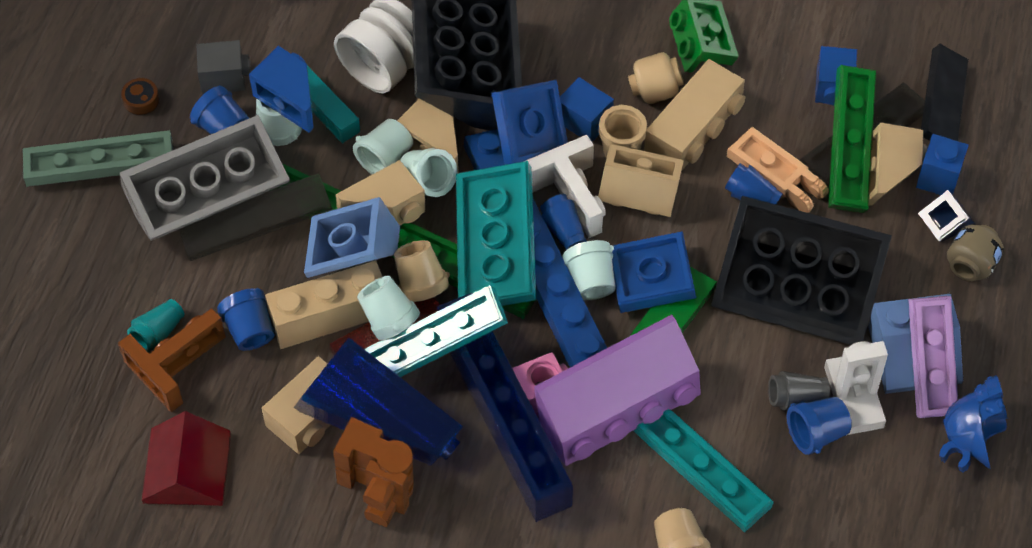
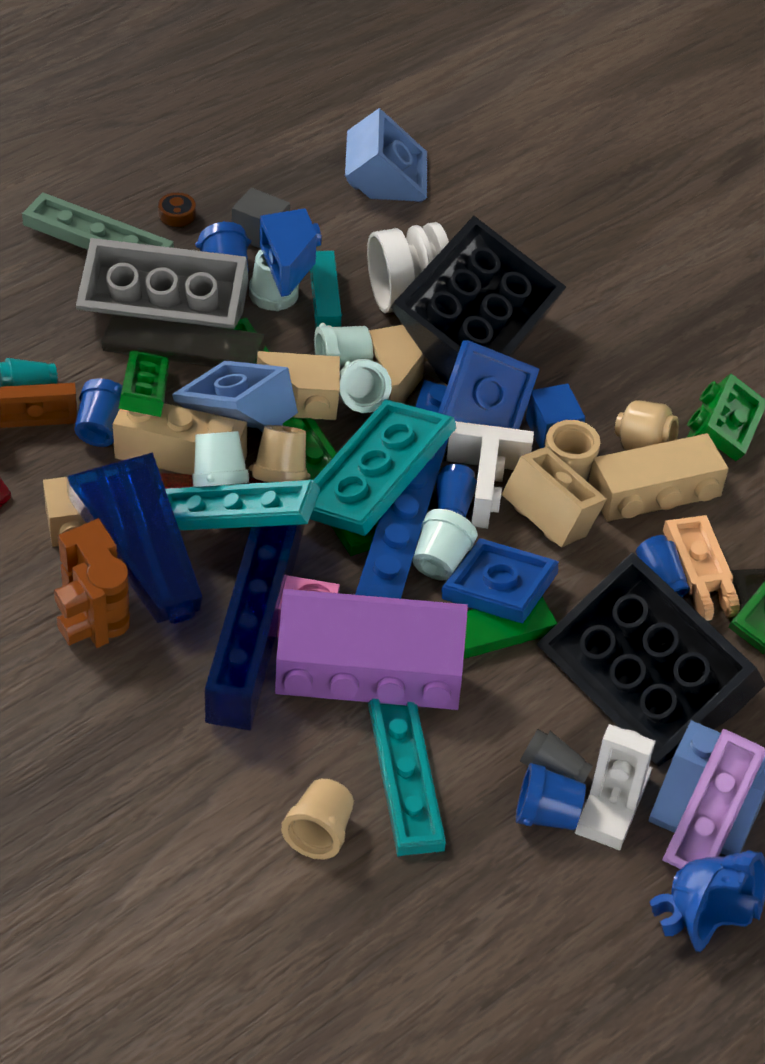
camera: 30 degrees right, 10 degrees down
(271, 276) = (144, 383): none -> green tile

